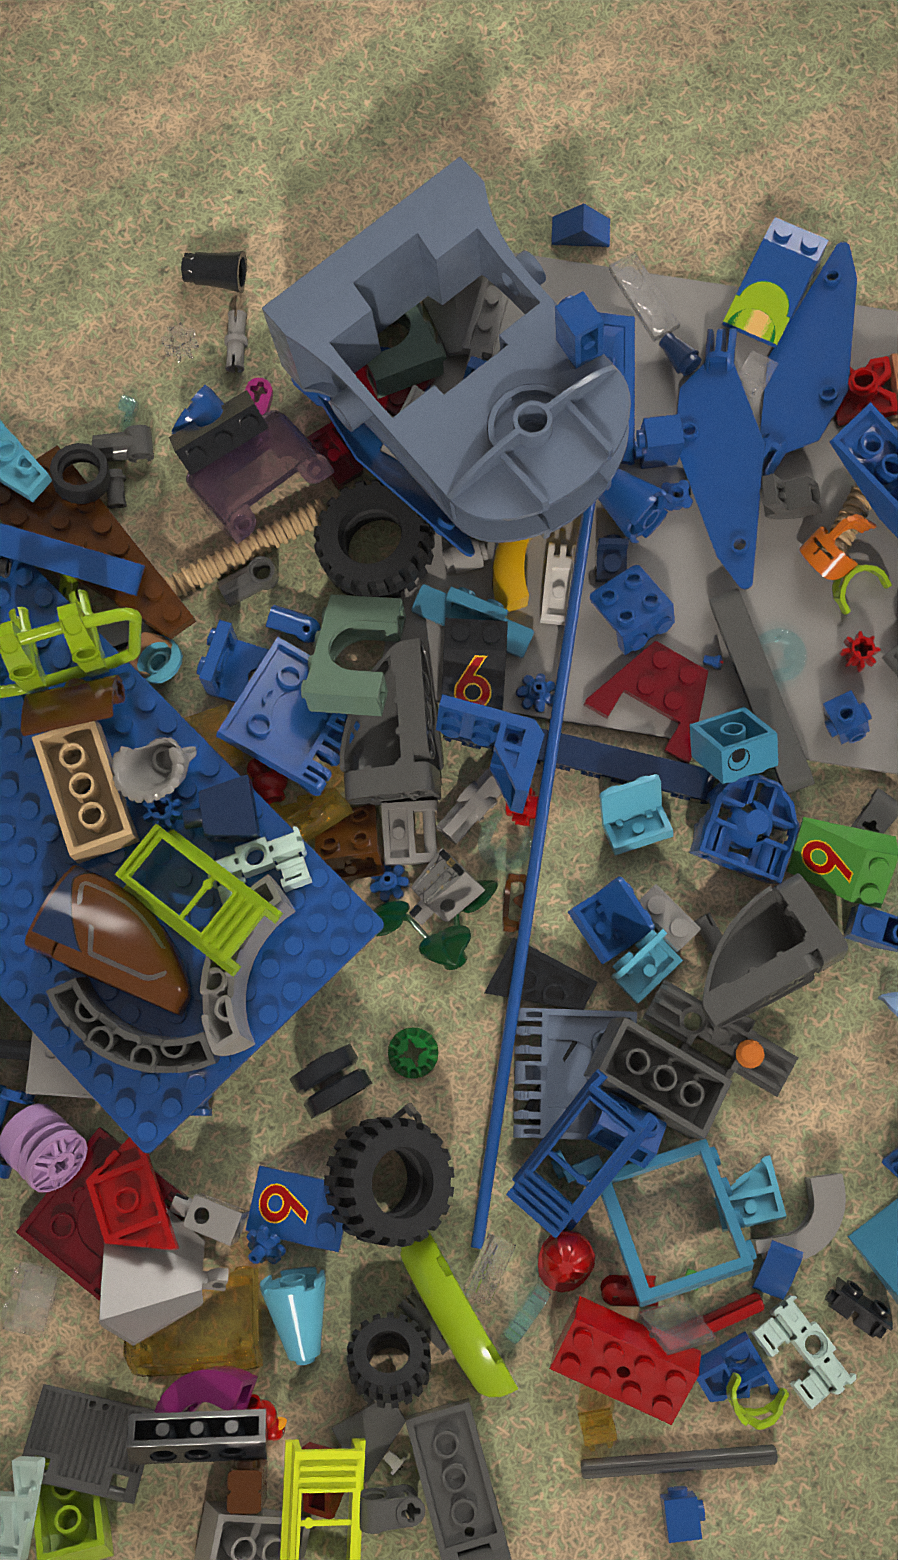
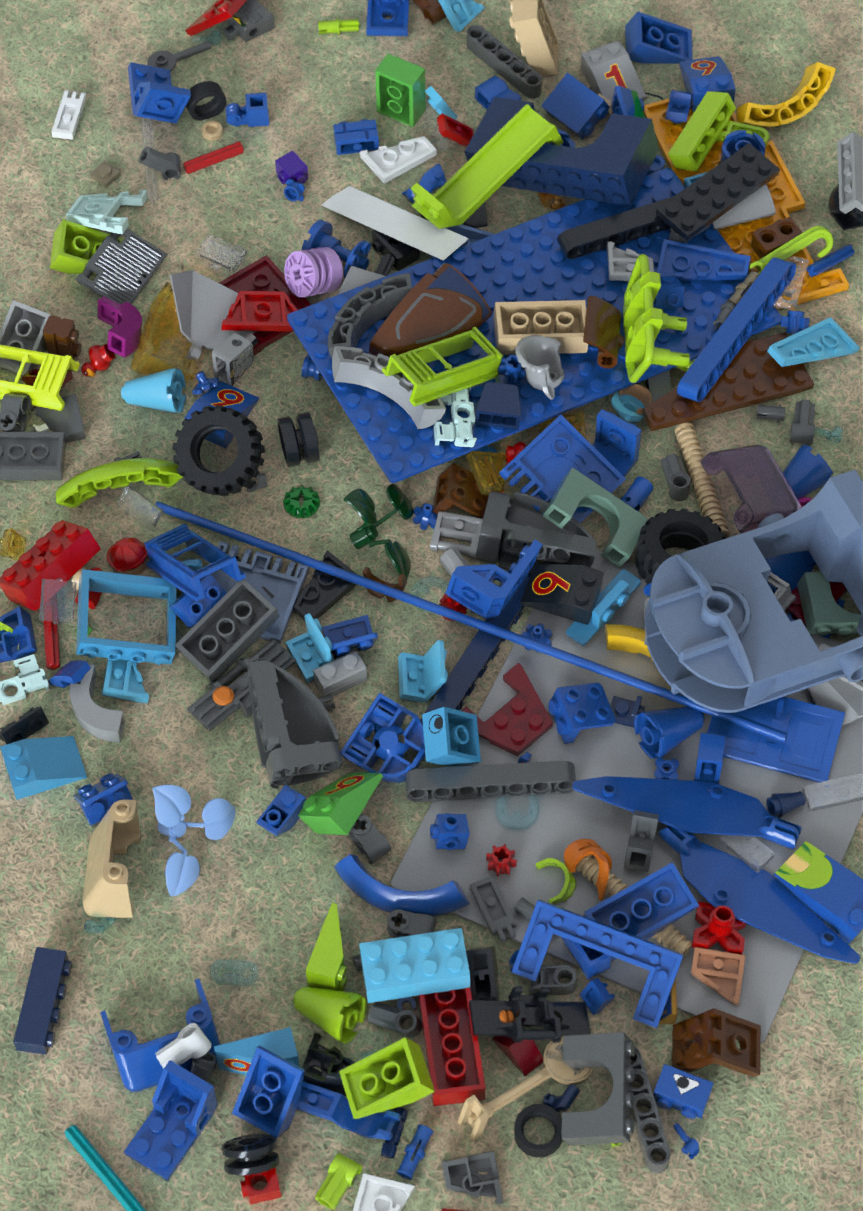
camera: 110 degrees right, 20 degrees down
(75, 454) = (793, 374): black tyre -> none
(197, 1436) = (101, 310): black brick -> none
(236, 425) = (781, 453): black arch -> none
(384, 1334) = (112, 417): black tyre -> none
(443, 889) = (409, 539): light grey torso -> none
(526, 1313) = (102, 522): clear light blue beam -> none
(557, 585) = (619, 664): white hinge -> none
(579, 329) = (781, 650): blue brick -> none

